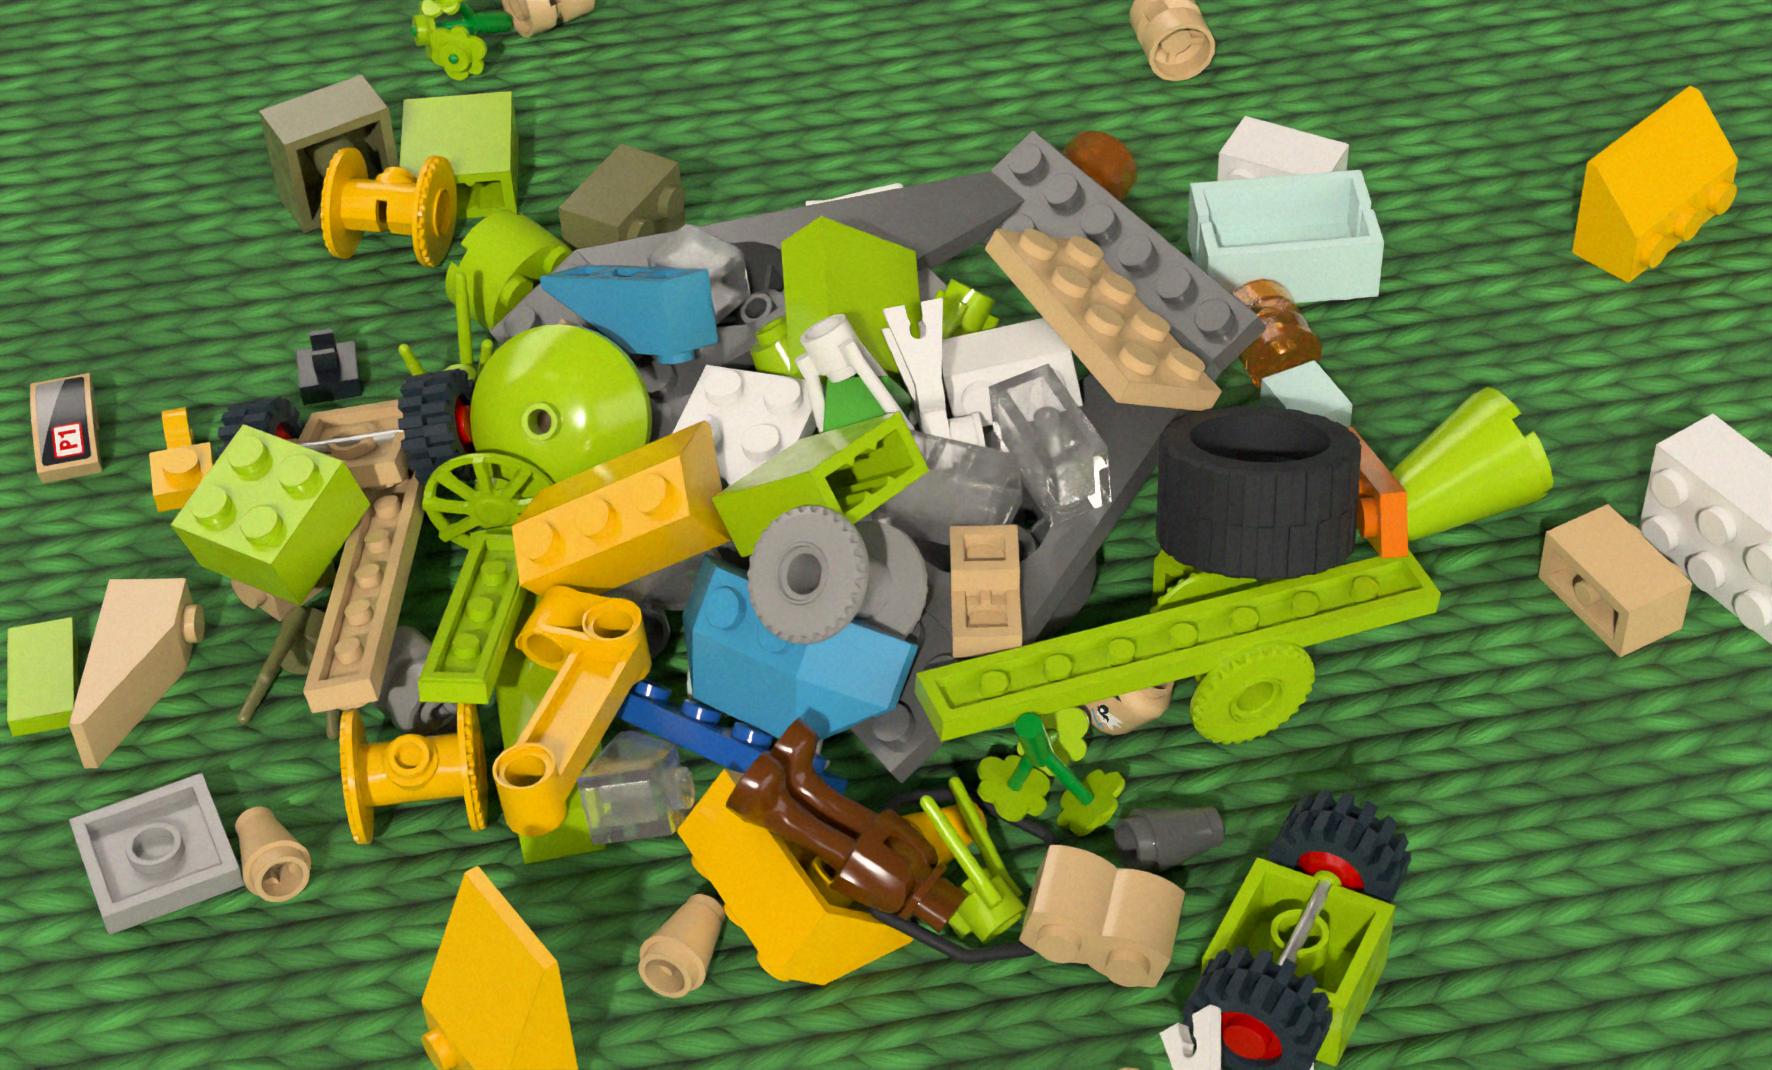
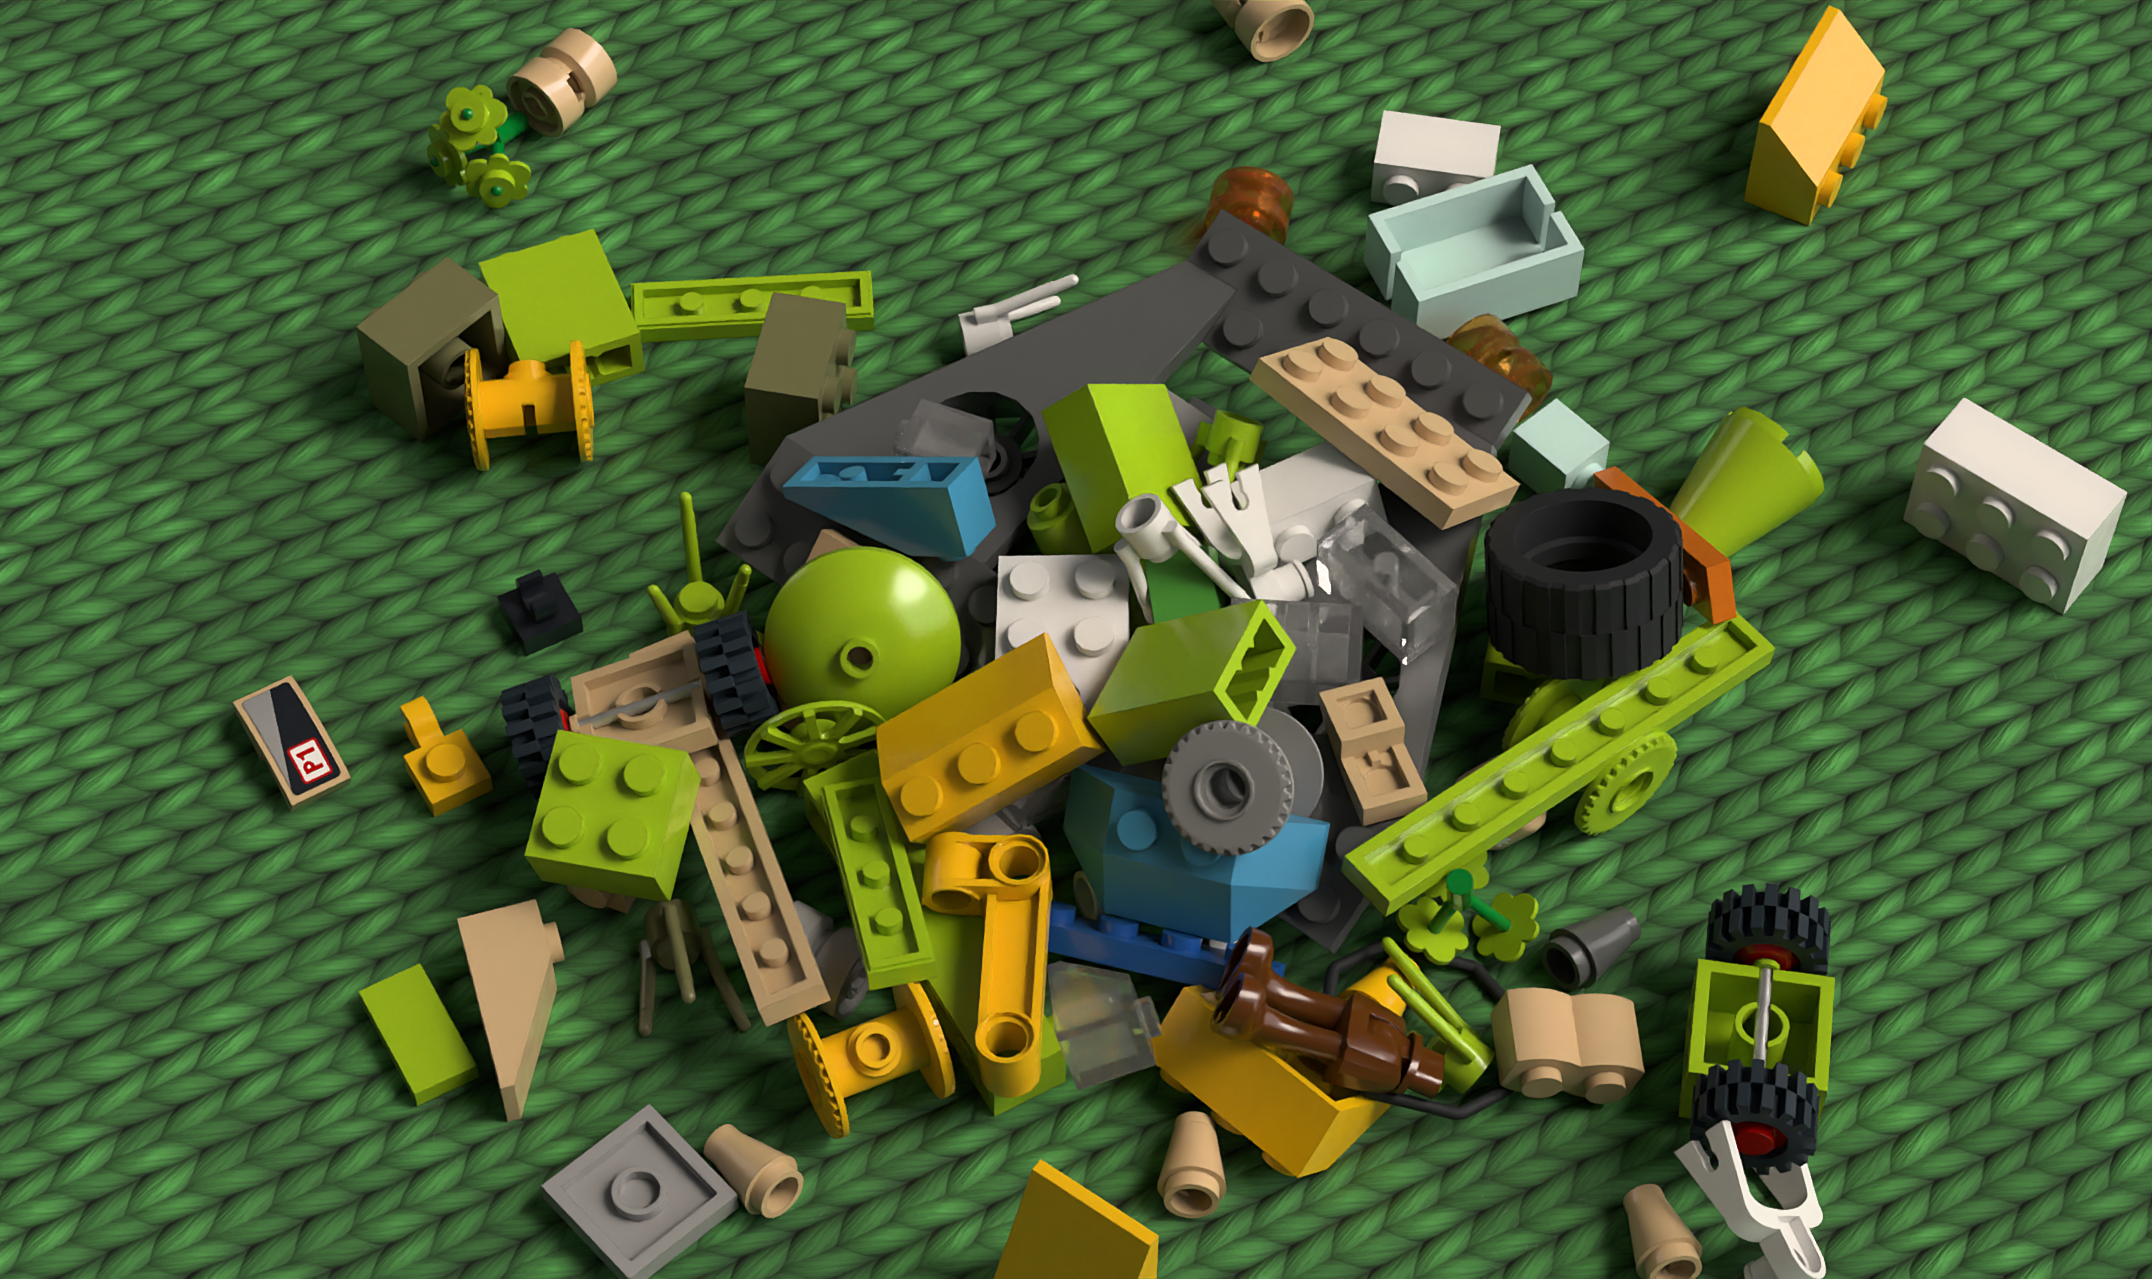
camera: 20 degrees left, 10 degrees up
(504, 264) = (708, 455): lime brick -> none
(562, 170) = (740, 304): none -> lime tile
(1614, 580) = (1904, 579): tan brick -> none

